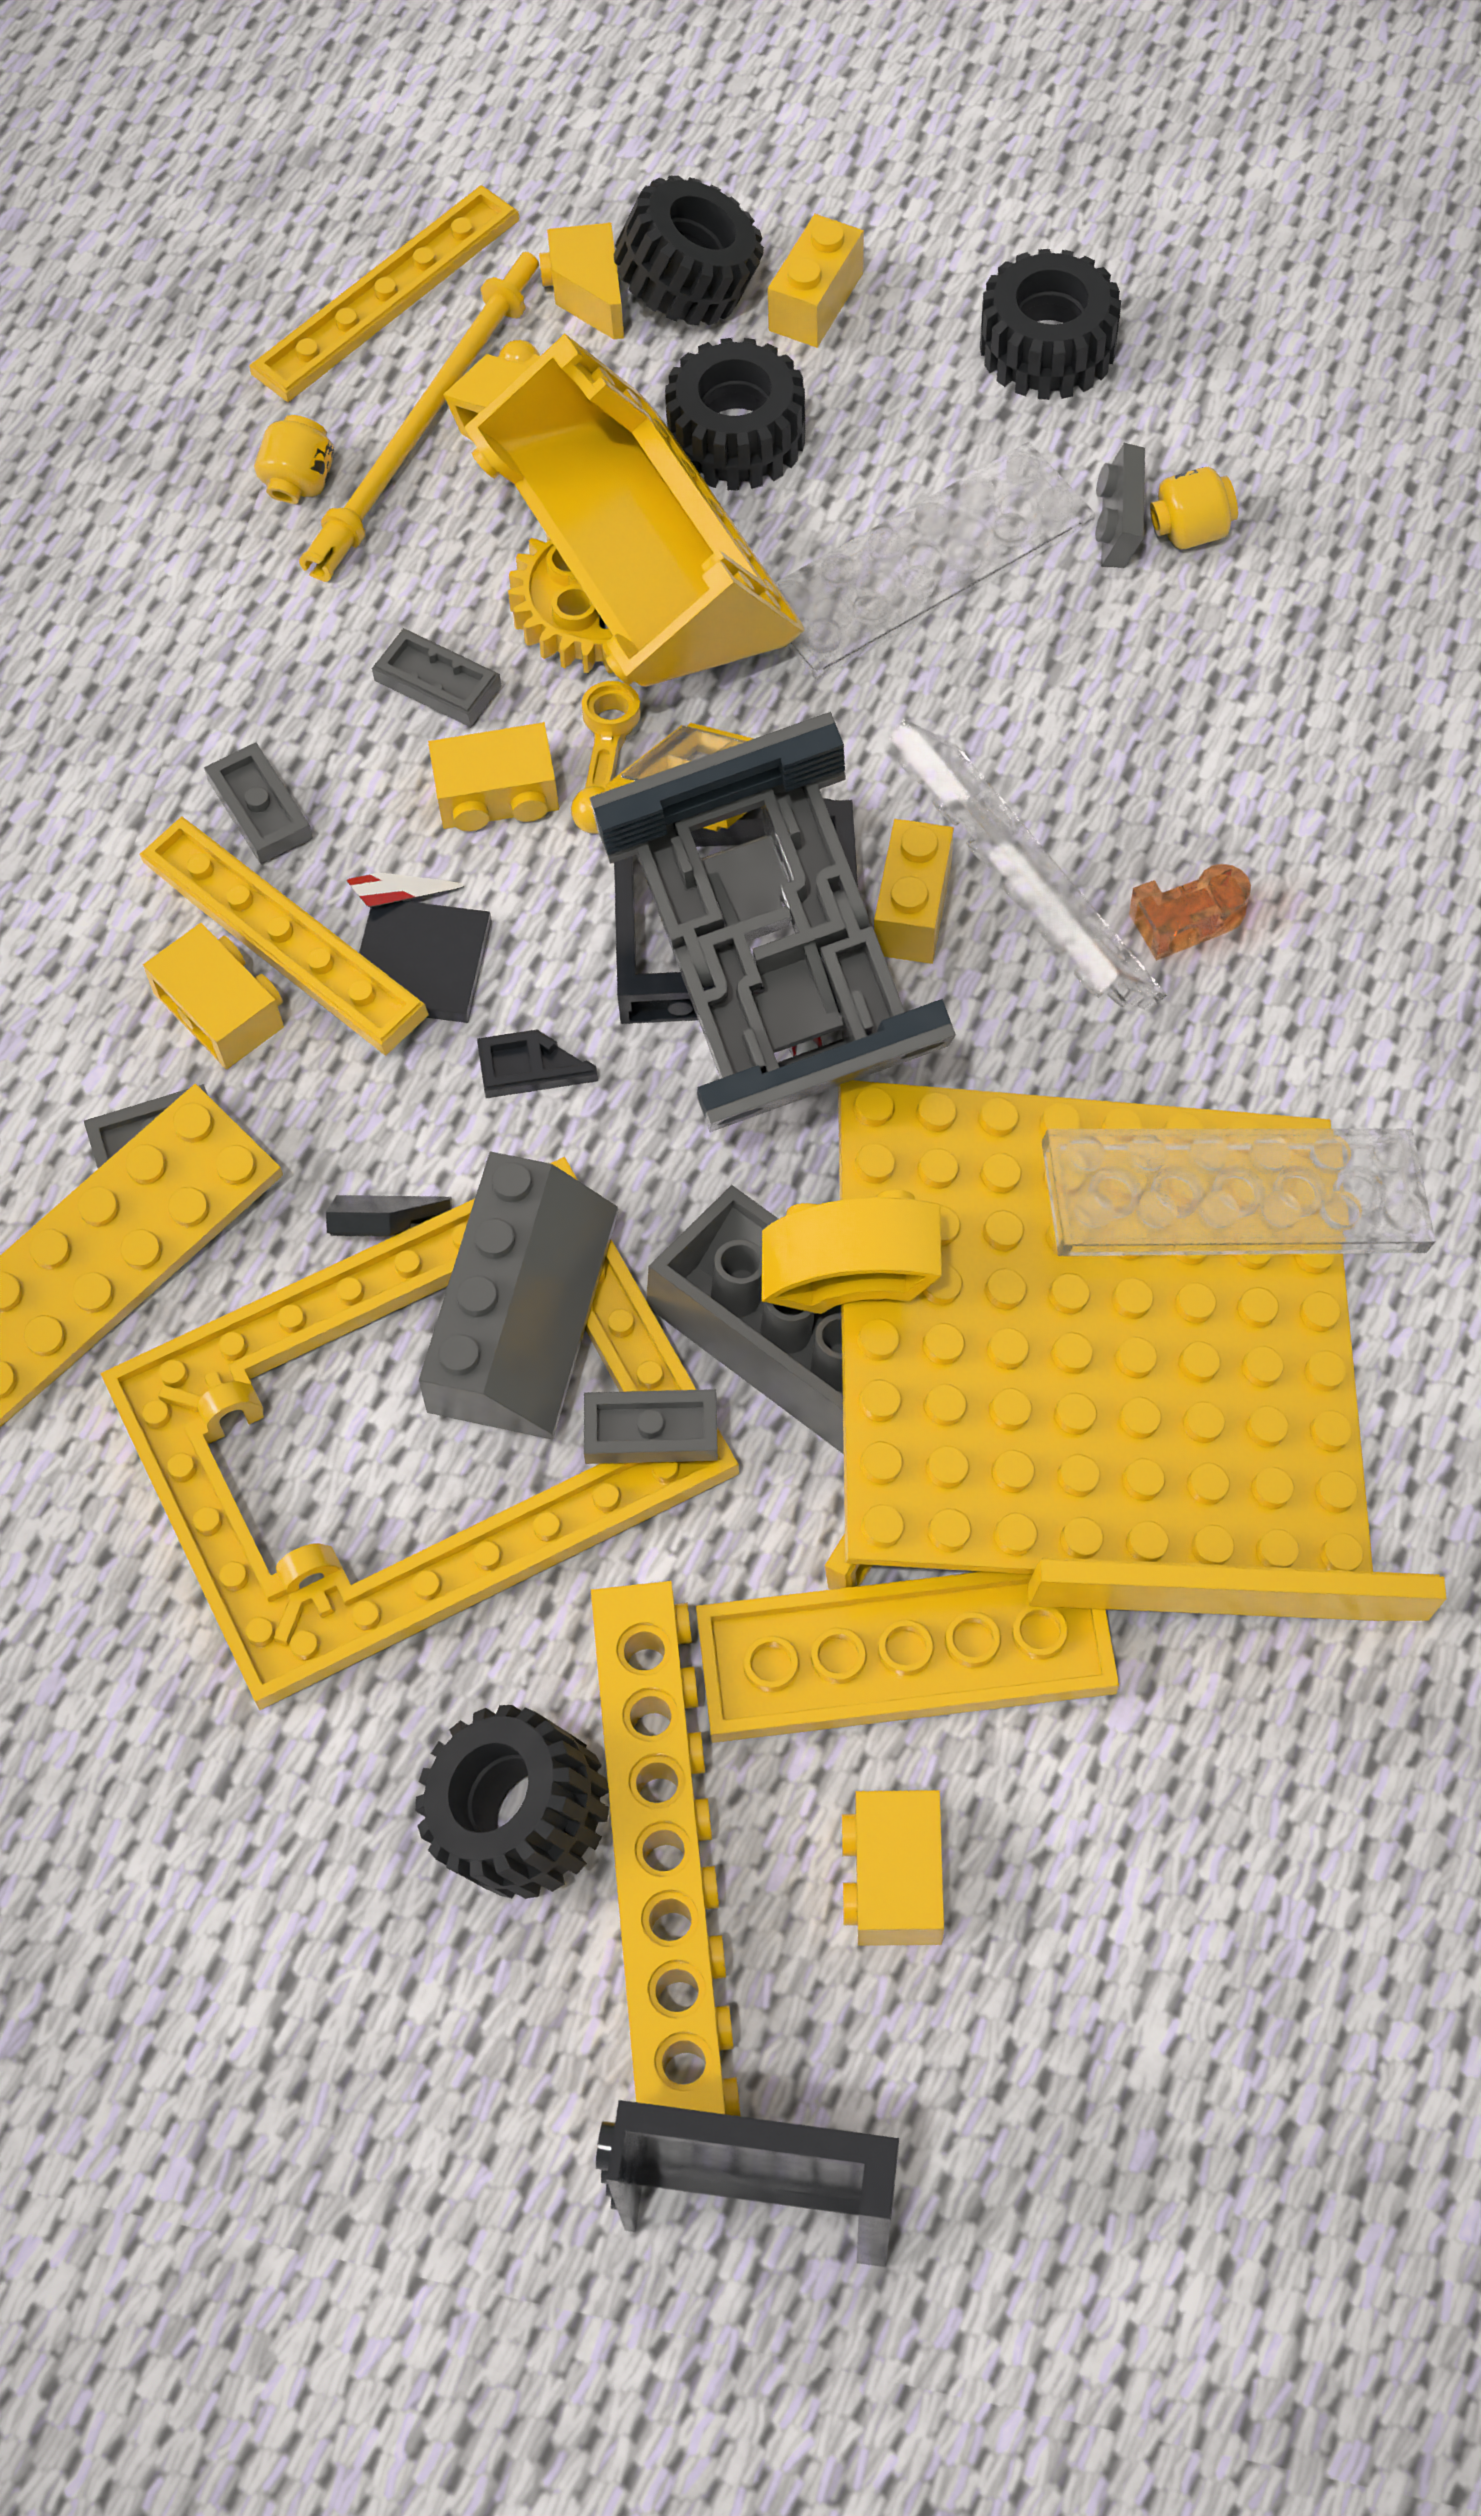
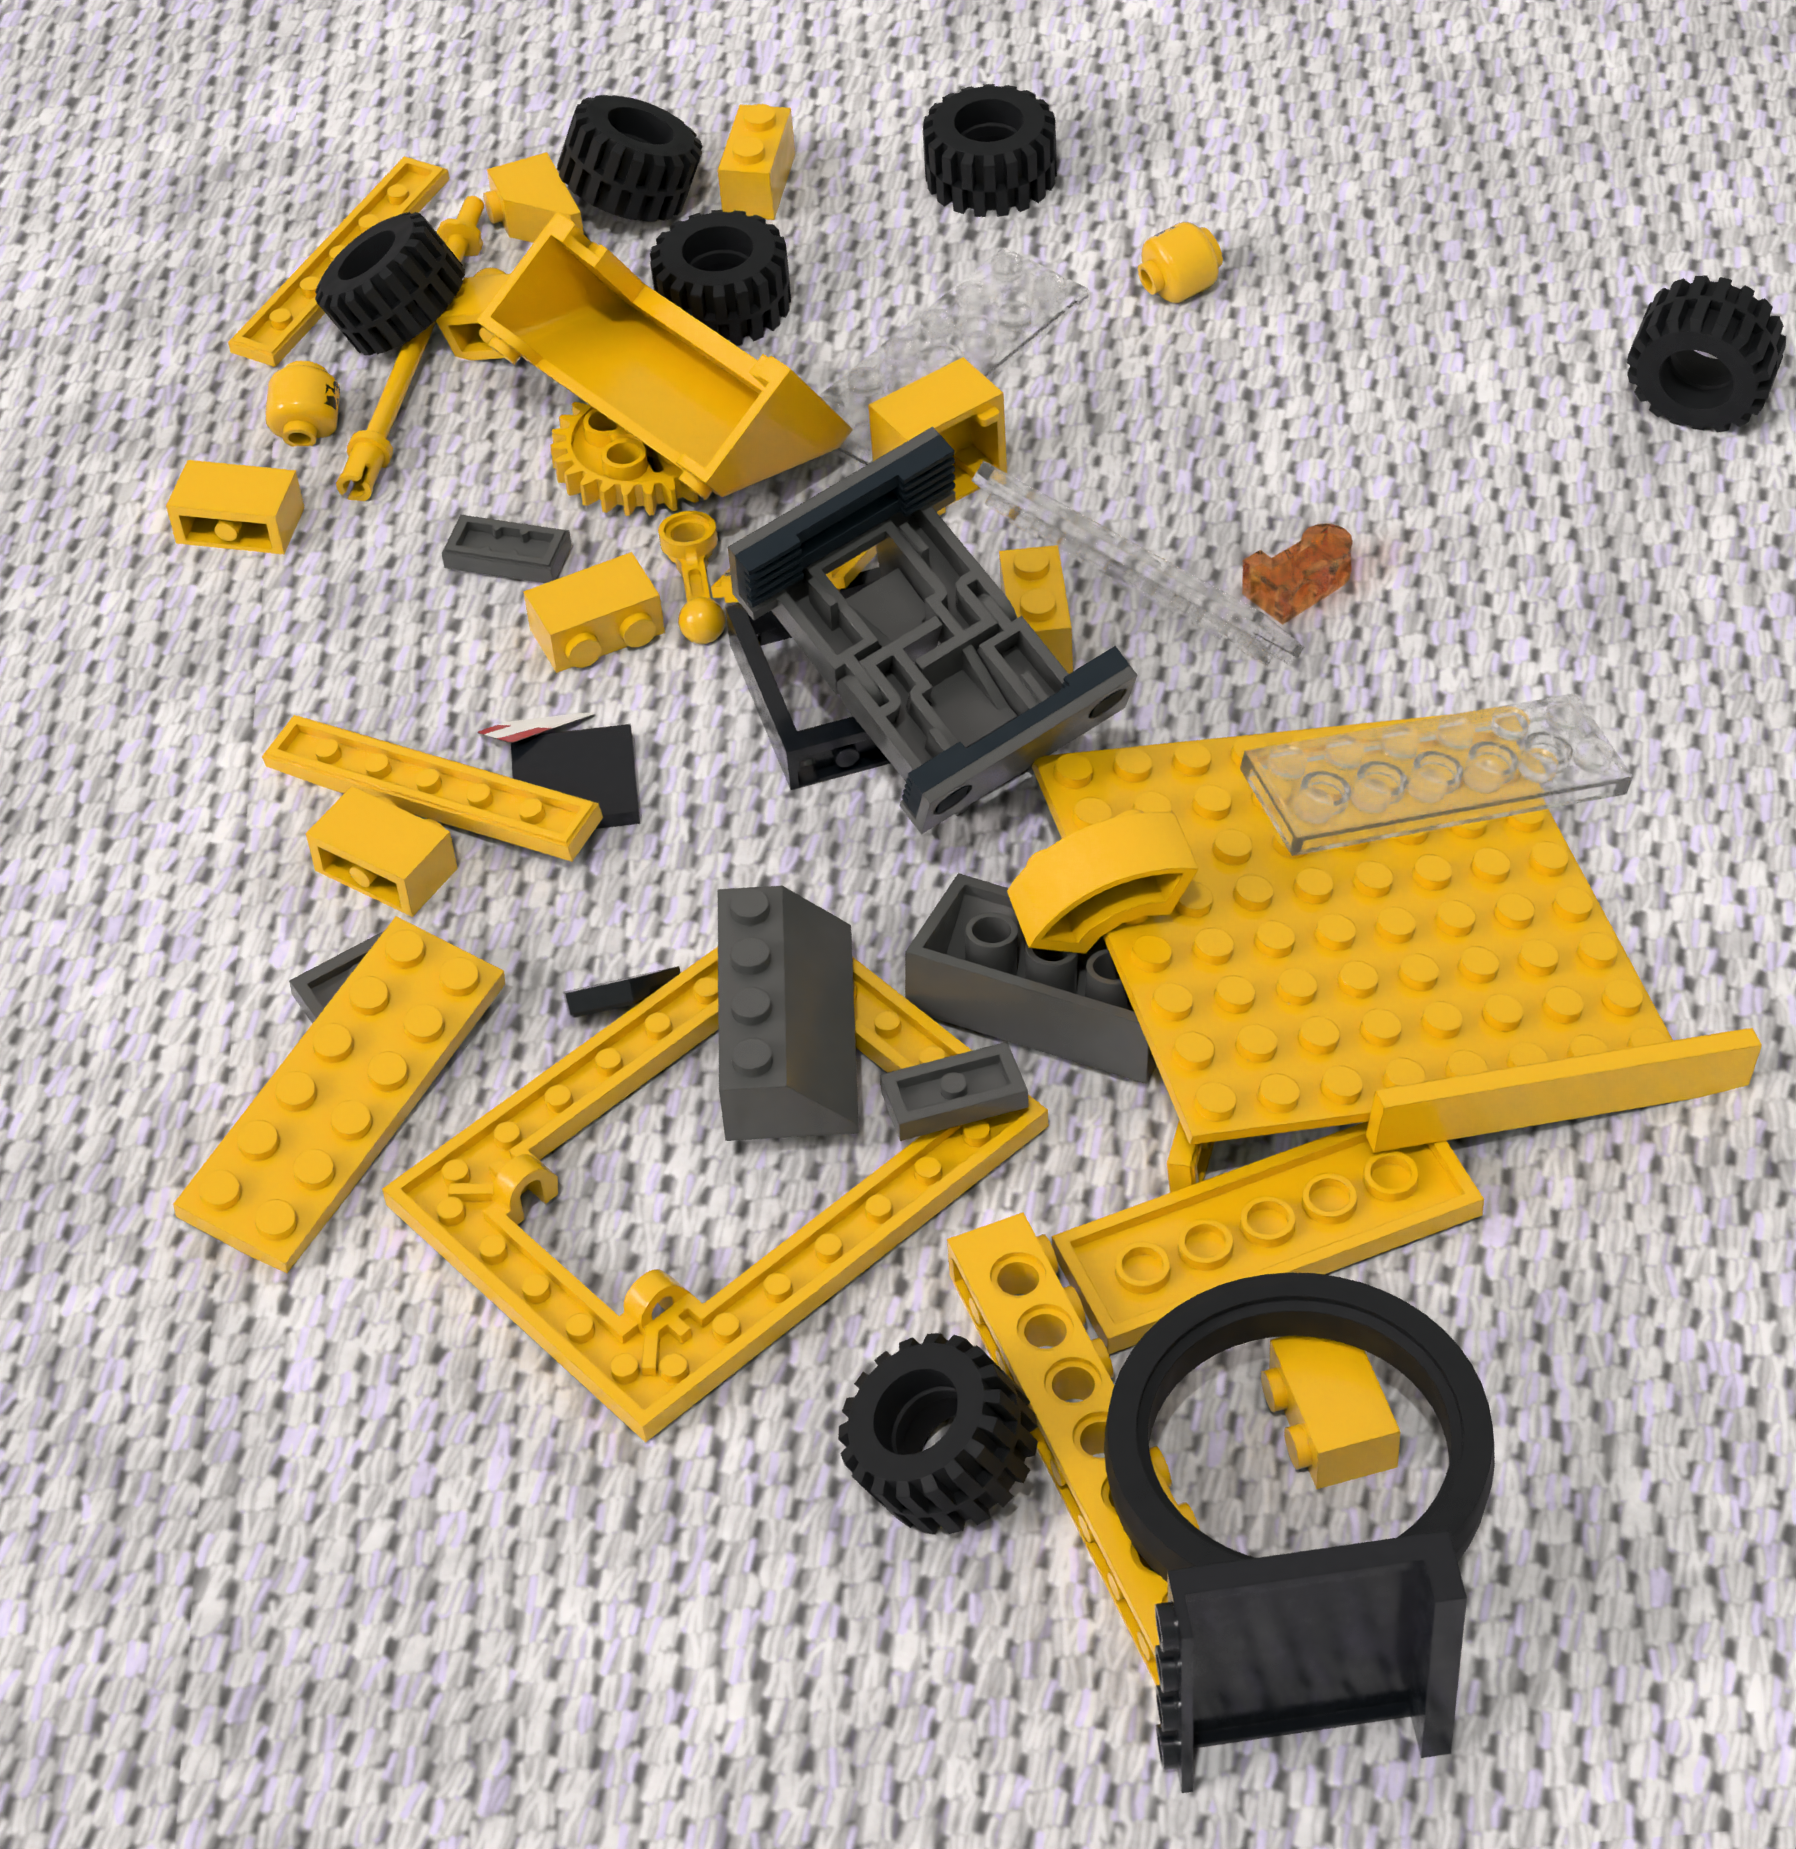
camera: 15 degrees left, 15 degrees down
(196, 563) = (235, 506): none -> yellow brick
(258, 802) = (367, 687): dark grey plate -> none
(410, 346) = (390, 283): none -> black tyre
(528, 1063) = (713, 841): black tile -> none
(871, 1771) = (1291, 1307): none -> black tyre
(881, 667) = (960, 408): none -> yellow container
(1122, 513) = (1112, 276): dark grey plate -> none

